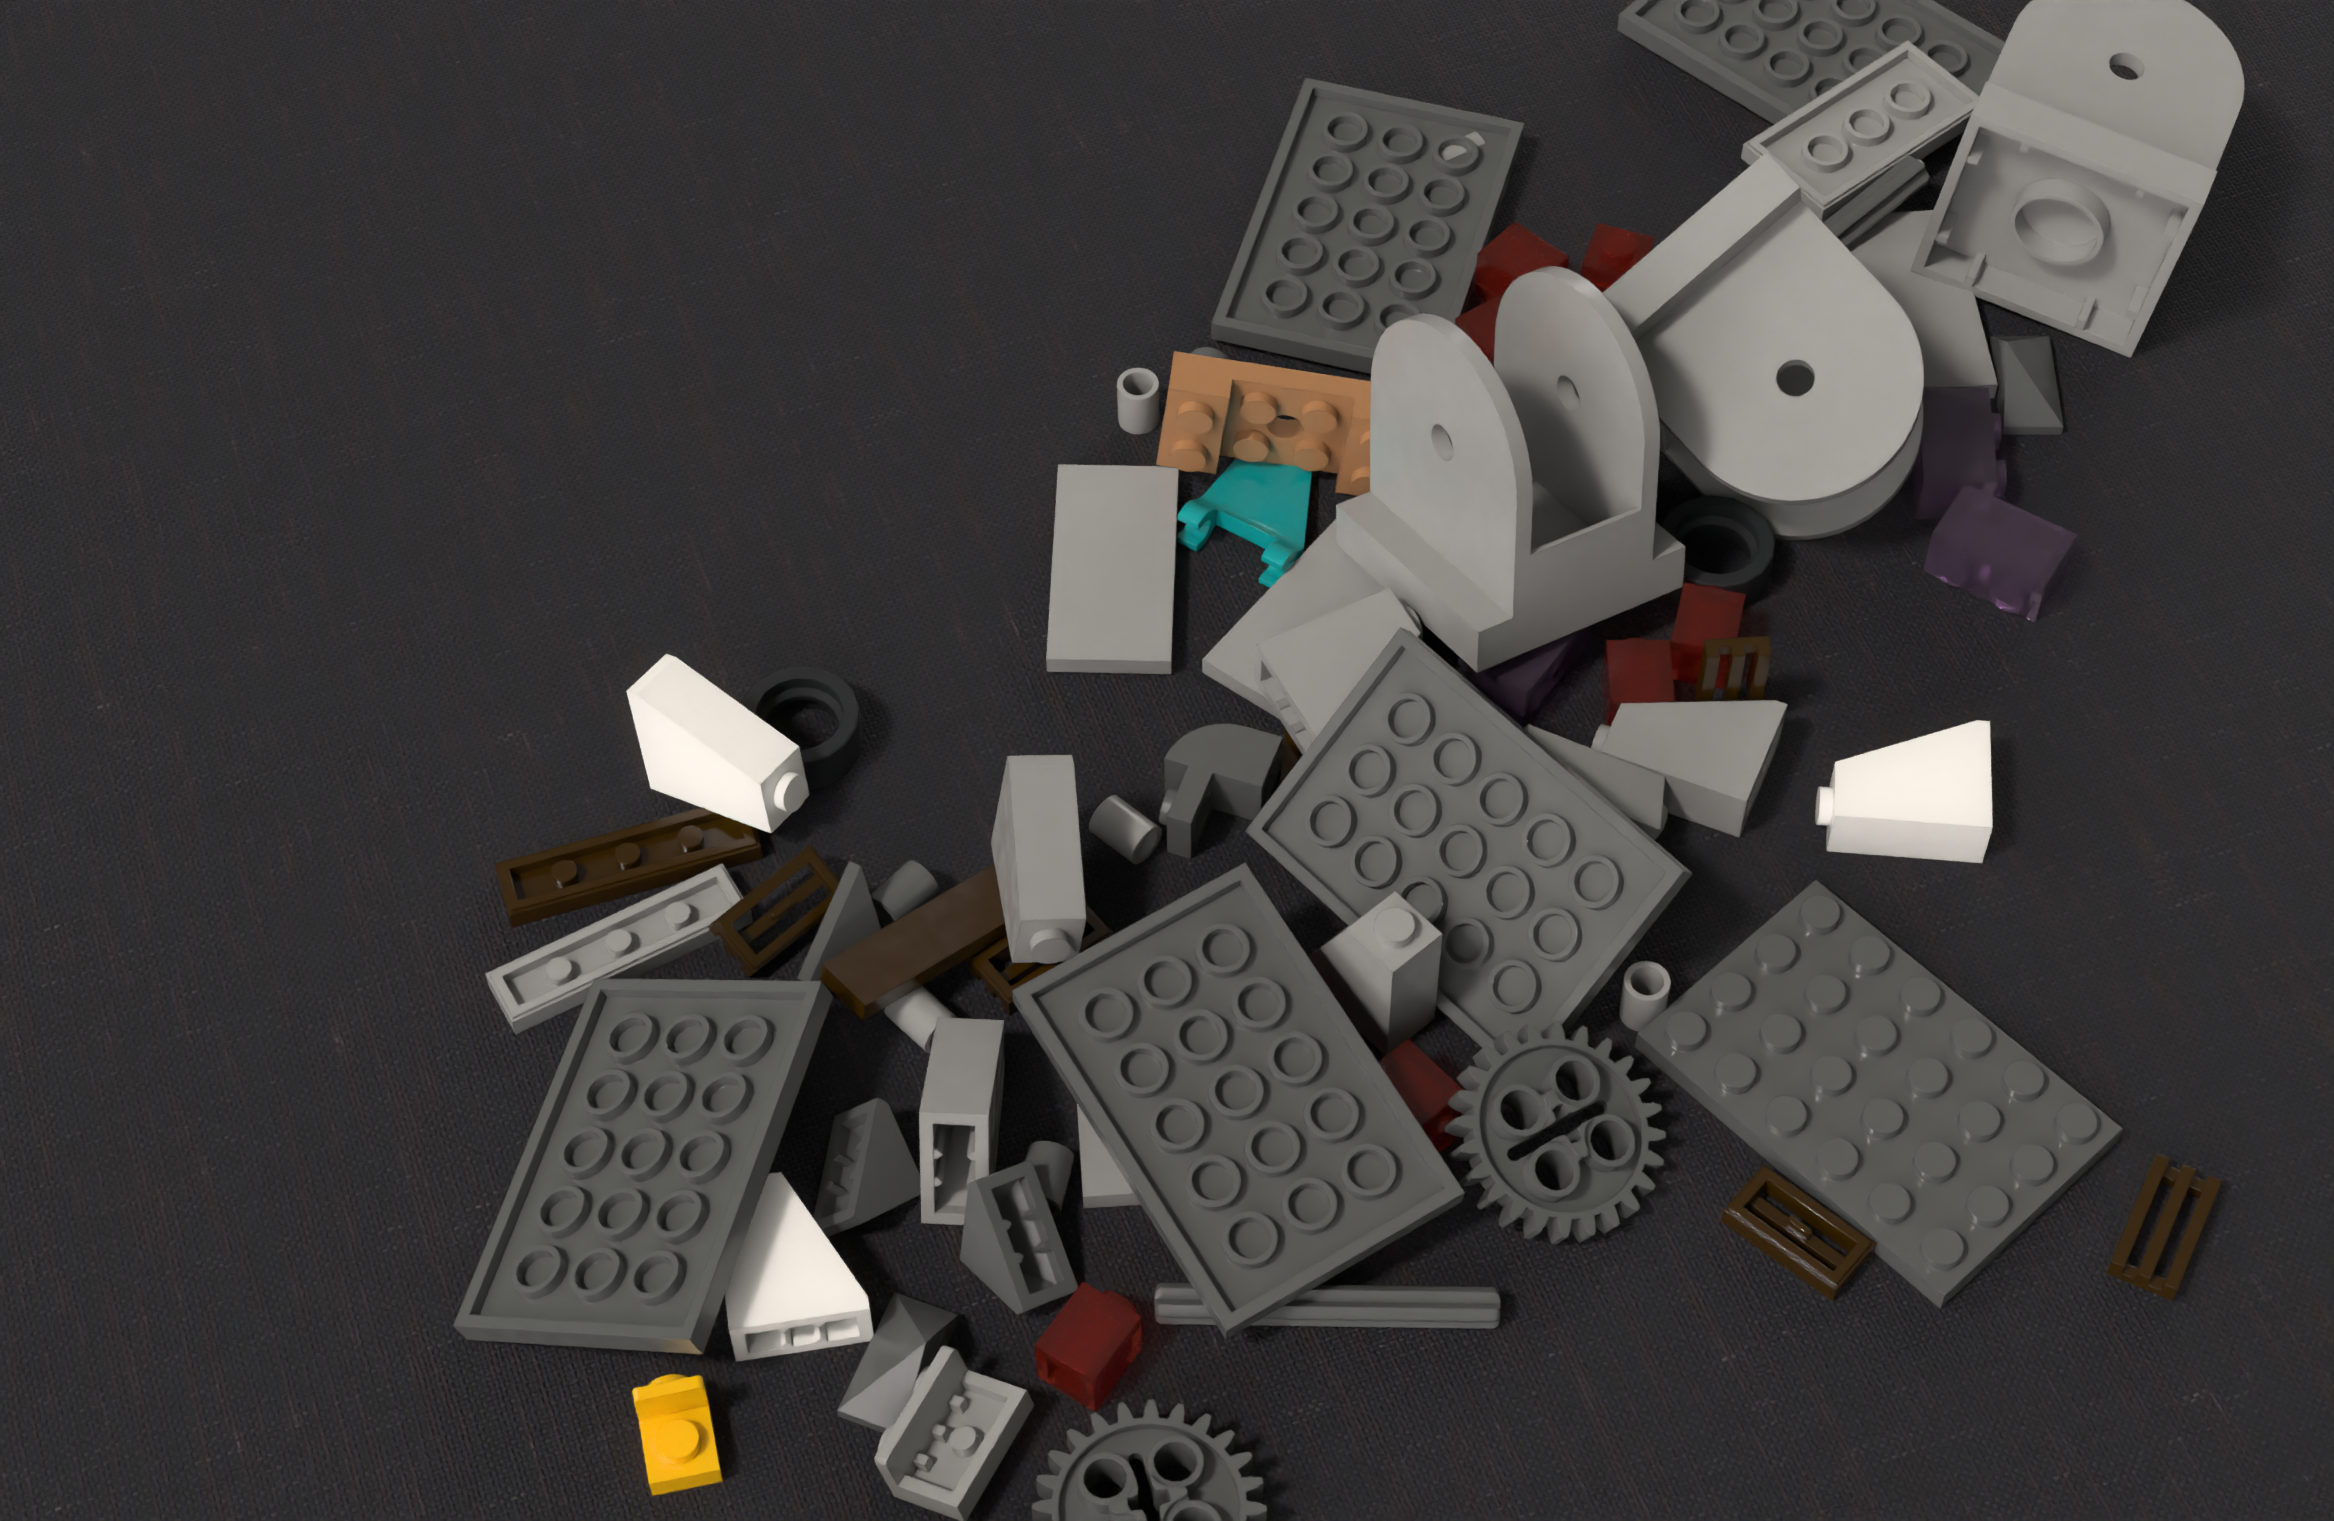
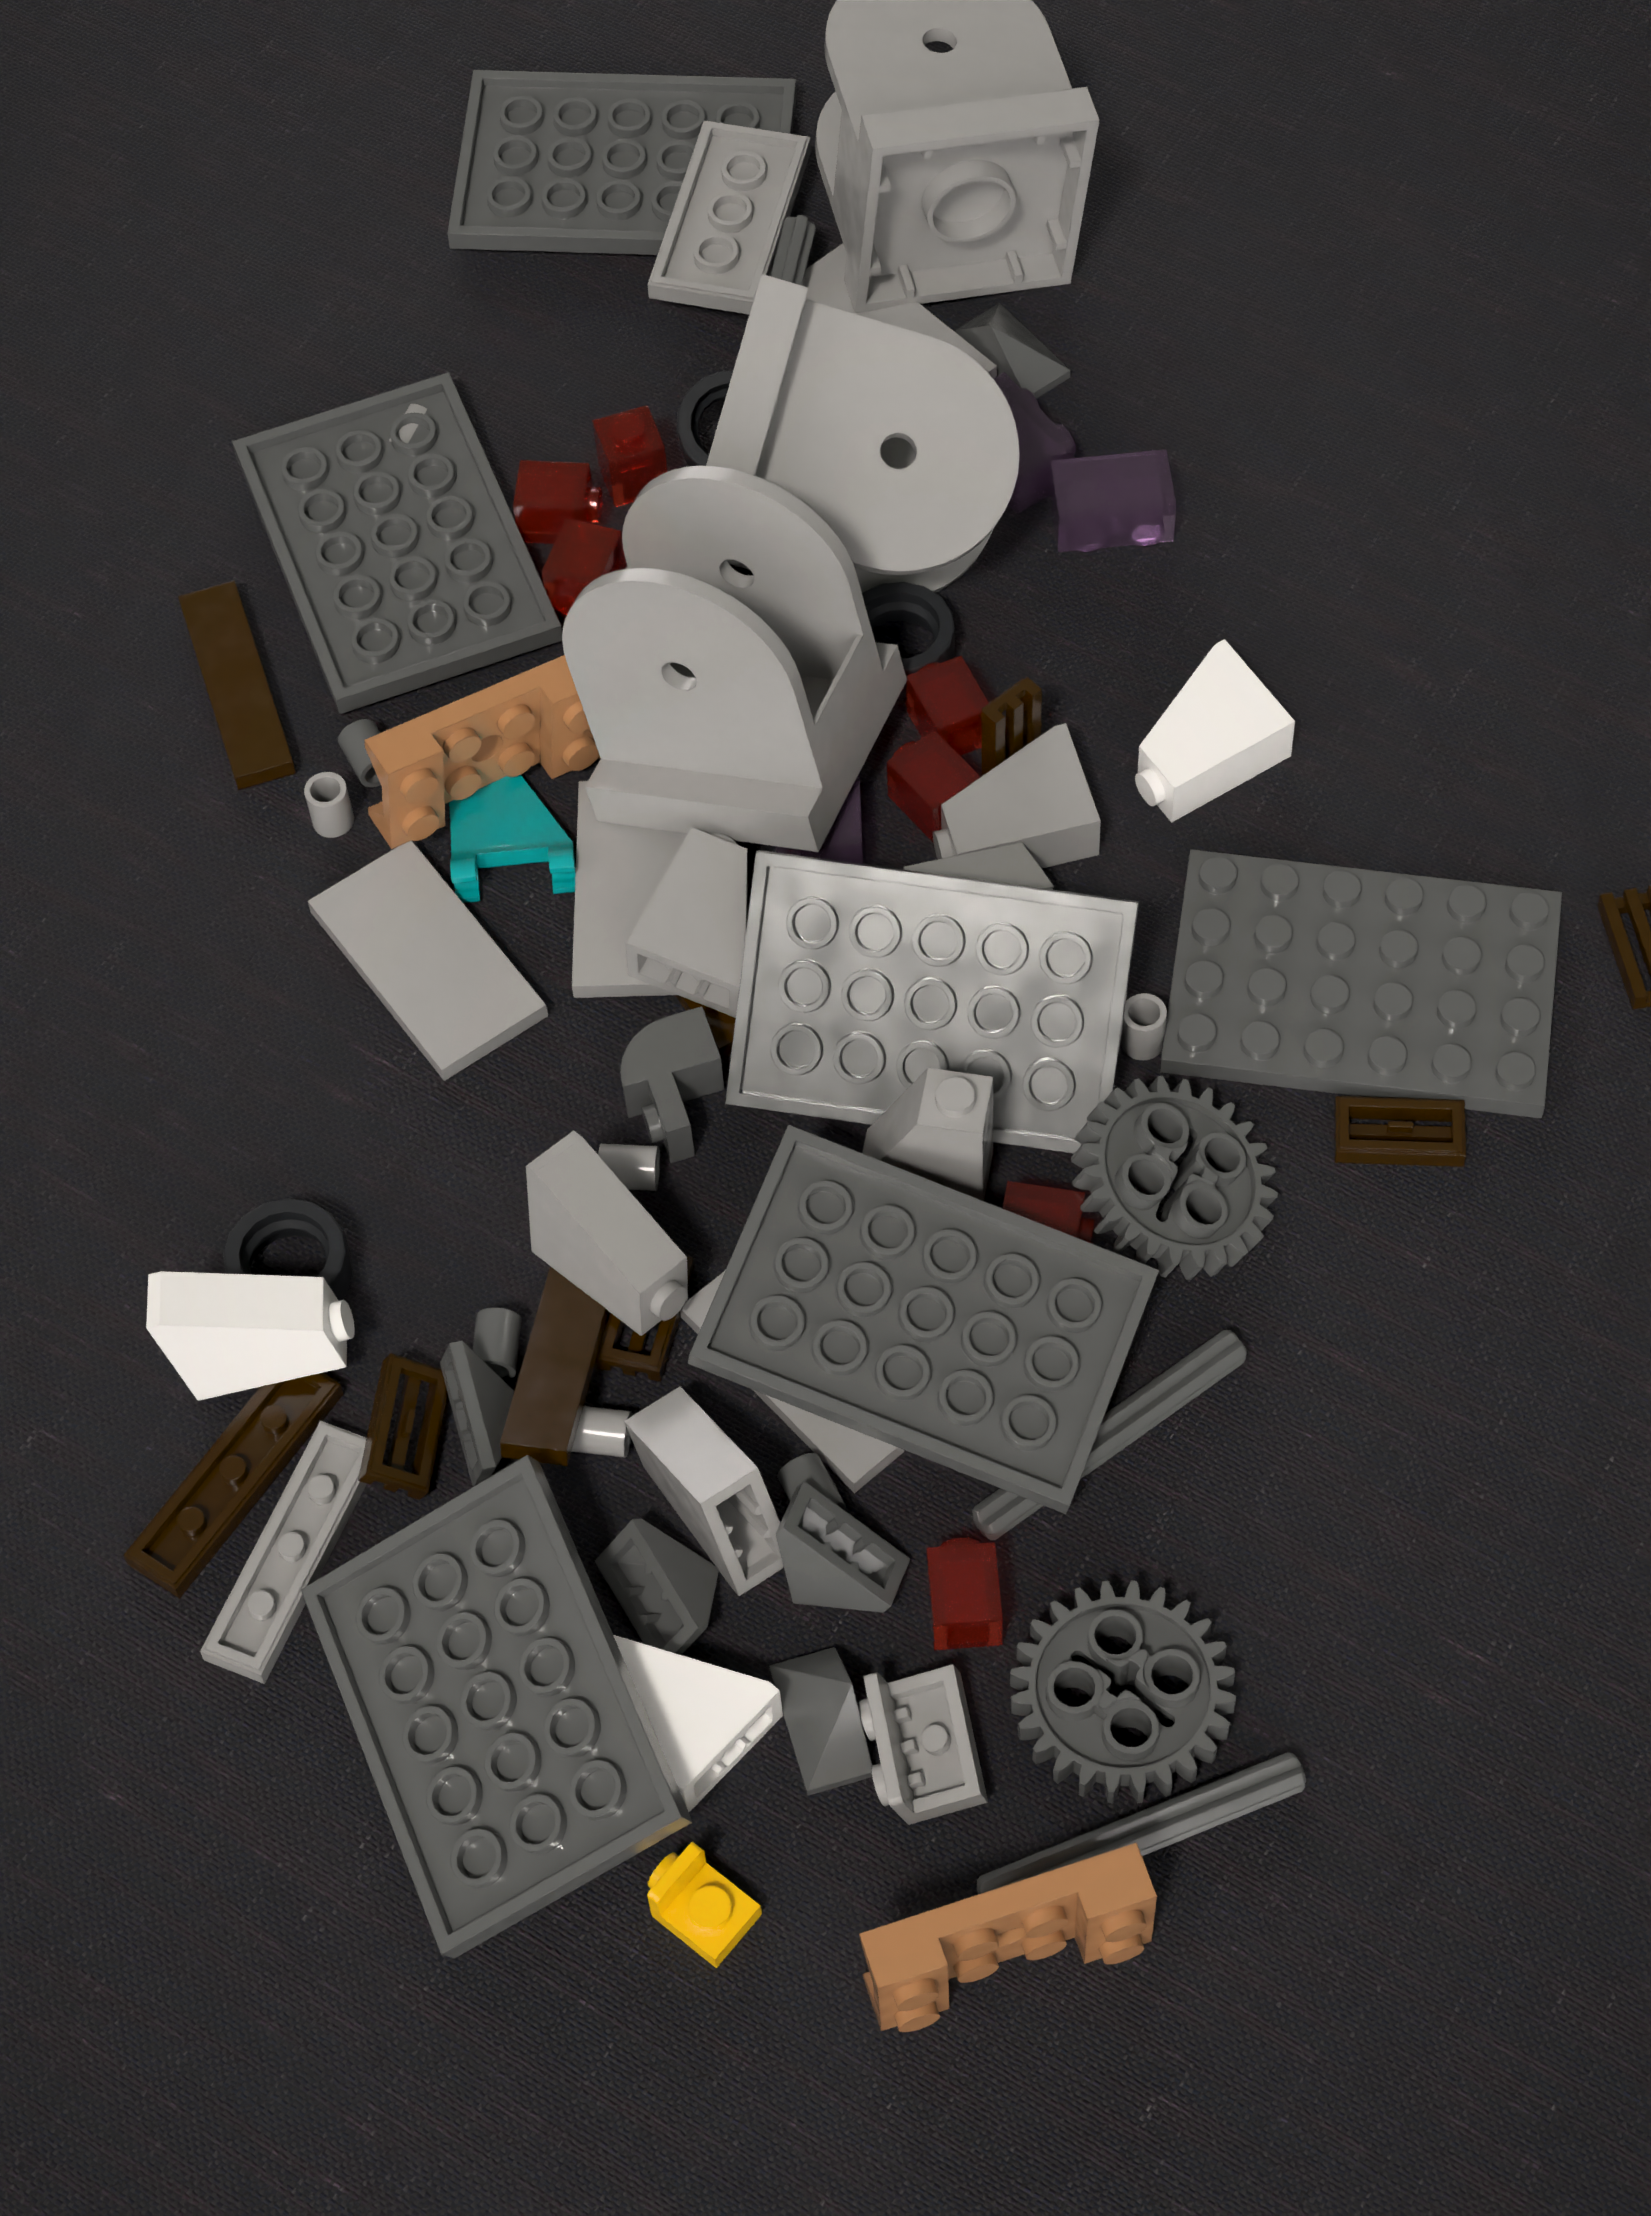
camera: 35 degrees left, 5 degrees up
(1151, 268) = (236, 685): none -> dark brown tile

